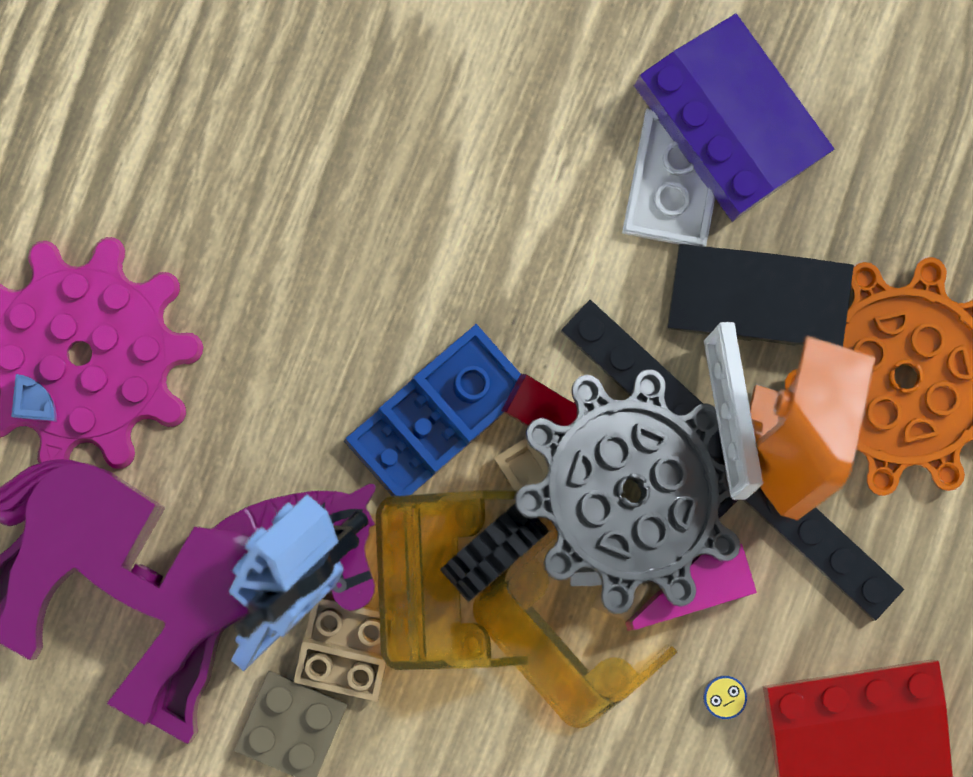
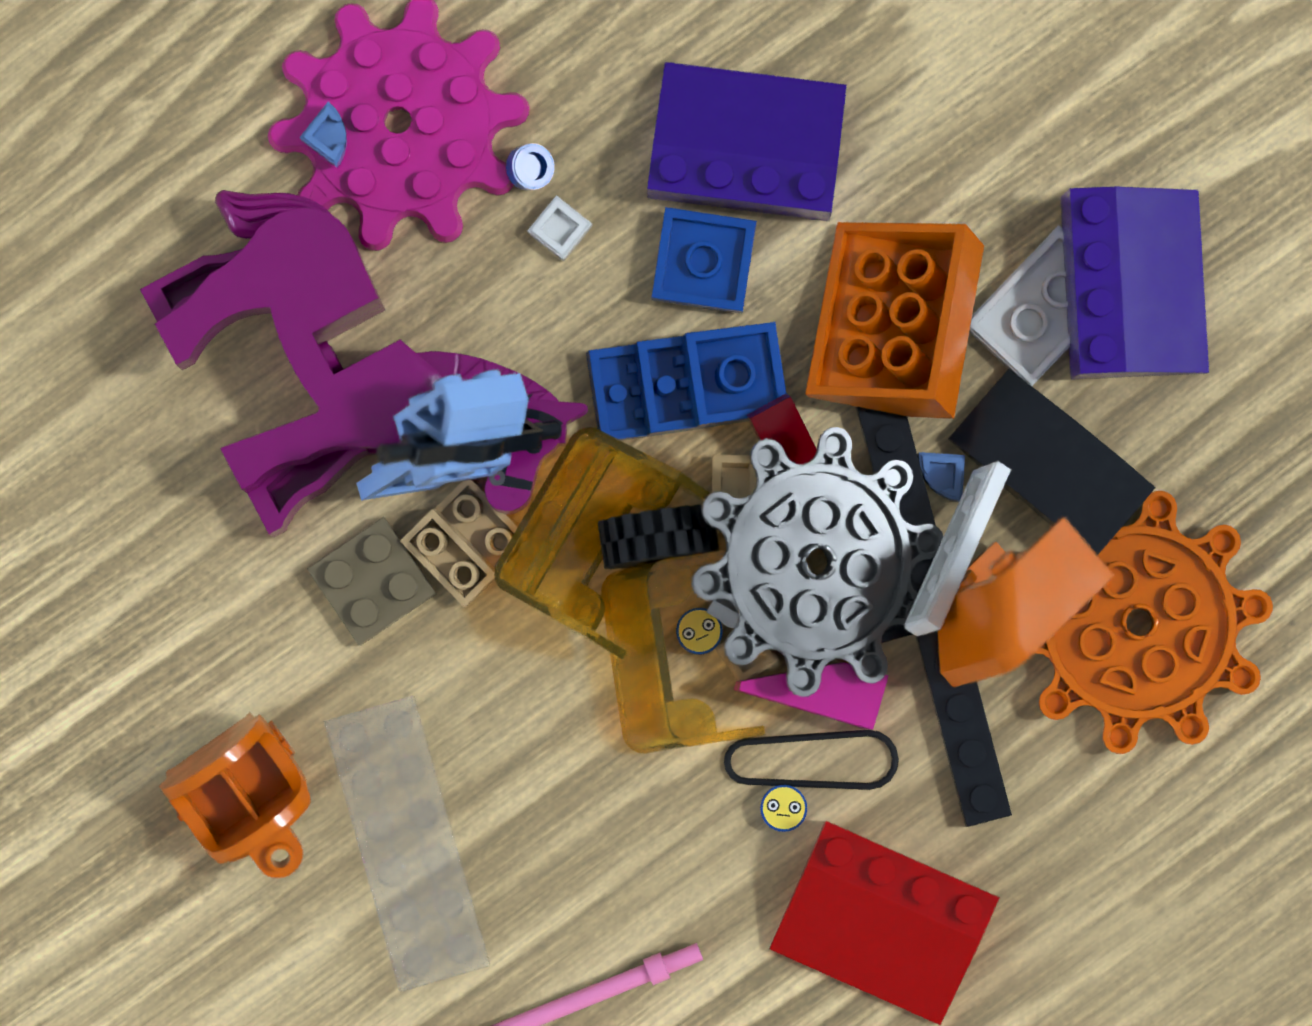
camera: 40 degrees right, 0 degrees up
(207, 323) = (530, 167): none -> tile
(261, 356) = (559, 228): none -> white tile
(364, 196) = (747, 141): none -> dark purple slope
(390, 310) = (703, 260): none -> blue plate
(568, 260) = (896, 317): none -> orange slope
(570, 602) = (698, 631): none -> light yellow tile
(682, 357) = (943, 473): none -> medium blue tile
(762, 592) = (810, 737): none -> black piece

